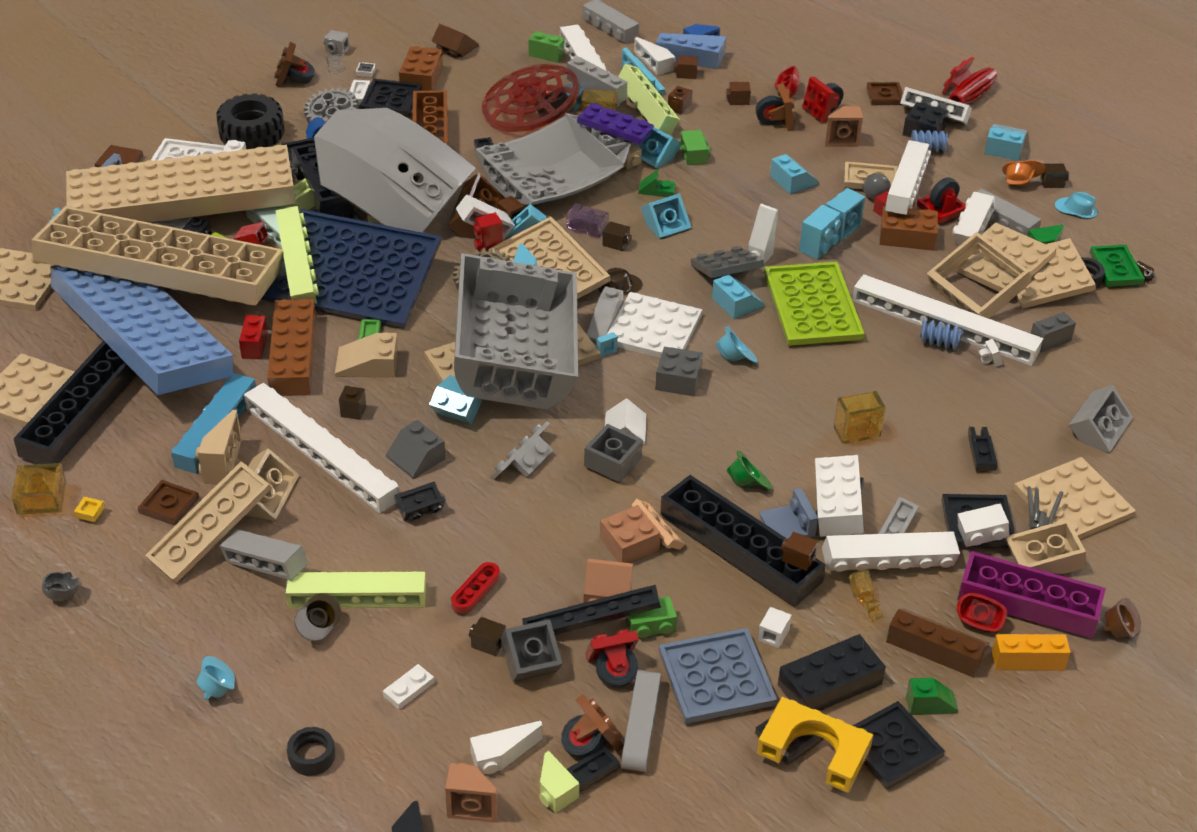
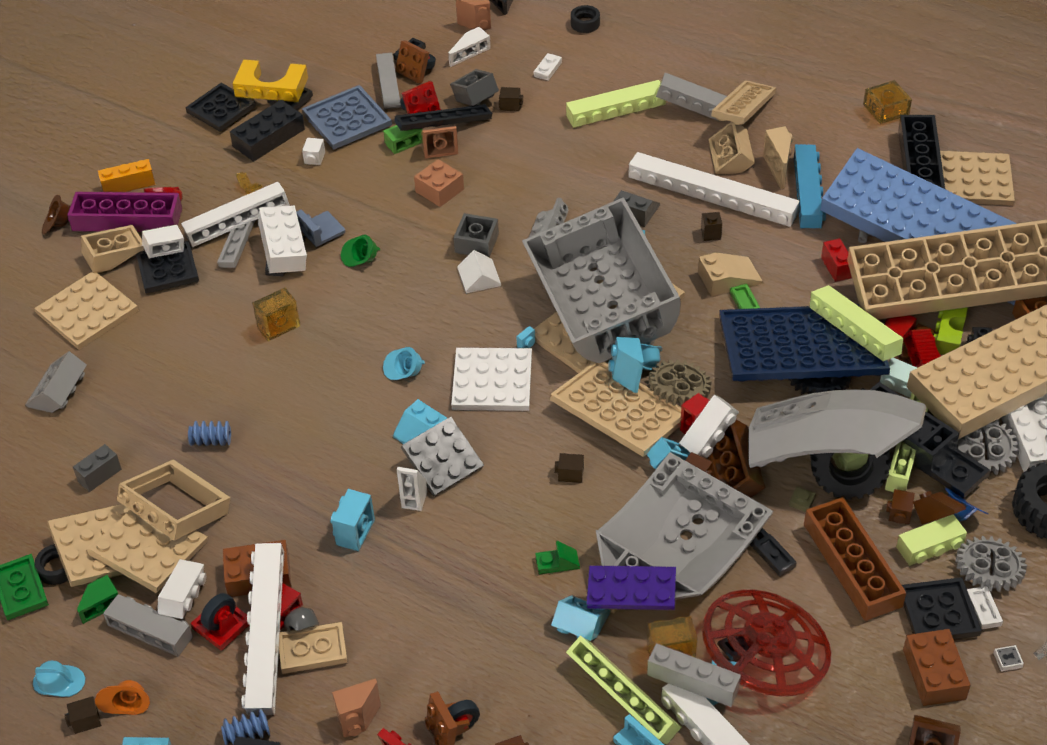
camera: 165 degrees right, 5 degrees up
(60, 586) = (813, 55): dark grey hair -> none
(89, 509) = (843, 107): yellow plate -> none
(168, 502) = (798, 126): reddish brown tile -> none
(215, 678) = (669, 34): medium azure piece -> none
(292, 347) = (795, 257): dark orange brick -> none
(318, 617) = (628, 74): dark brown piece -> none
(419, 501) = (607, 167): black bracket -> none
(465, 597) = (535, 127): red plate -> none
(557, 785) = (429, 35): yellowish green slope -> none
(587, 220) = (610, 480): clear purple brick -> none
(605, 312) = (540, 373): light grey slope -> none
(622, 281) = (544, 419): dark brown piece -> none
(666, 216) = (531, 511): medium azure slope -> none
(668, 535) = (421, 198): light nougat plate -> none
(679, 371) = (449, 327): dark grey brick -> none
(680, 99) = (585, 715): reddish brown brick -> none
(694, 147) = (536, 630): bright green brick -> none
(739, 539) = (353, 196): black brick -> none
(791, 174) = (404, 622): medium azure slope -> none
(799, 550) = (303, 172): reddish brown brick -> none
(813, 303) = (344, 444): lime plate -> none
(851, 207) = (331, 553): medium azure brick -> none
(929, 697) = (197, 135): green slope -> none
(936, 642) = (194, 172): reddish brown slope -> none
(976, 329) = (209, 457): white brick -> none
(982, 450) = (165, 329): black hinge -> none
(990, 354) = (159, 428): white tile -> none
(1037, 517) = (117, 276): dark grey plant -> none

